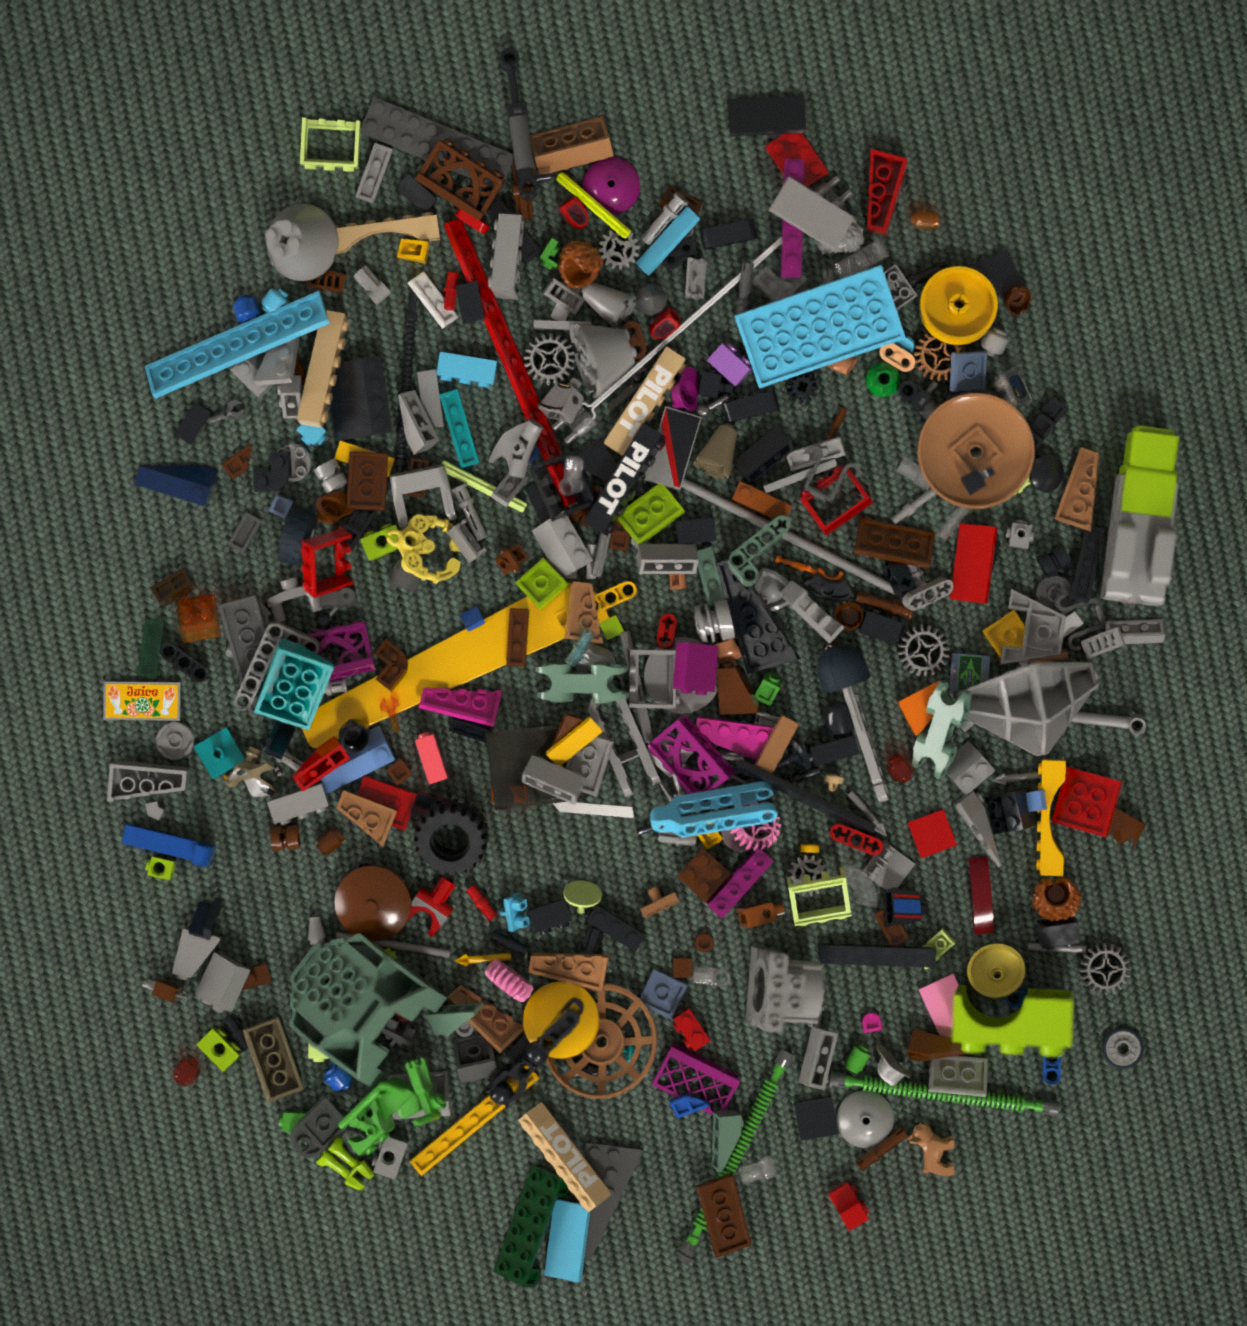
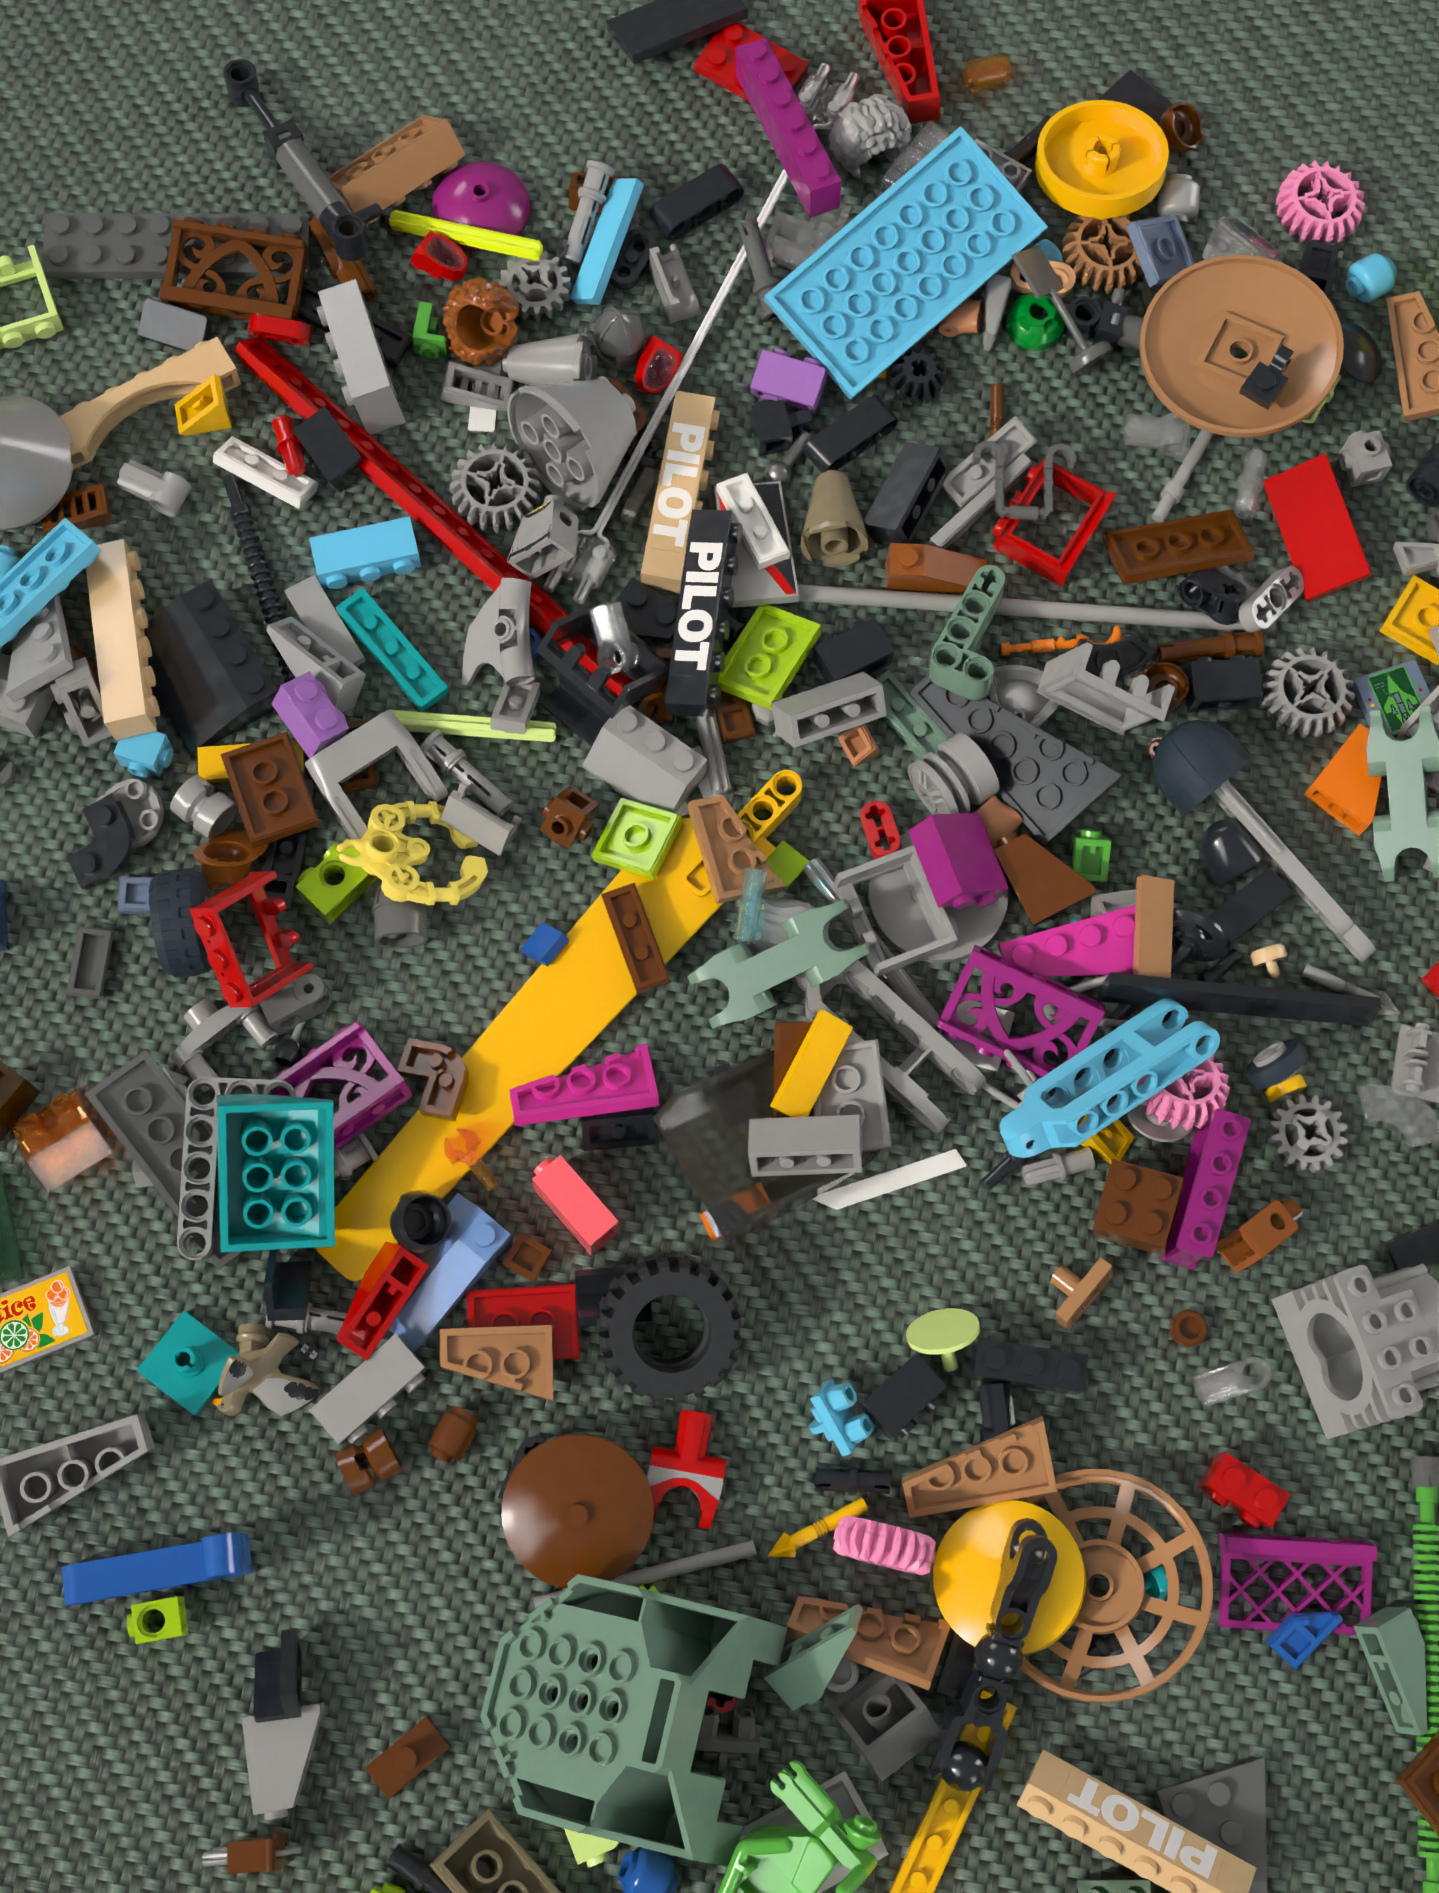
camera: 30 degrees left, 15 degrees down
(154, 810) = (107, 1518): light grey piece -> none
(175, 740) = (99, 1375): light grey tile -> none
(176, 658) = (51, 1215): black beam -> none
(222, 982) = (356, 1790): light grey brick -> none
(238, 463) = (35, 854): reddish brown tile -> none
(316, 932) = (494, 1613): light grey cone -> none
(374, 173) = (90, 322): light grey plate -> none
(402, 452) = (309, 714): none -> medium lavender brick
(481, 902) = (771, 1427): red pin -> none
(555, 325) = (479, 432): light grey tile -> none
(663, 993) = (1162, 1449): sand blue tile -> none
(675, 436) = (758, 527): none -> white tile
(682, 967) = (1173, 1389): reddish brown tile -> none
(685, 392) = (736, 448): magenta piece -> none
(808, 835) = (1276, 1063): none -> black wheel
(811, 213) = (816, 95): light grey tile -> none
(820, 915) = (1321, 1141): yellowish green window -> none
(849, 843) = (1381, 1028): red beam -> none
(862, 364) = (994, 302): none -> light grey slope
(890, 363) = (1045, 282): none -> dark grey piece
(900, 768) = (1367, 892): clear red head -> none
(1077, 432) = (1371, 277): none -> medium azure head
(1080, 377) = (1328, 193): none -> bright pink gear

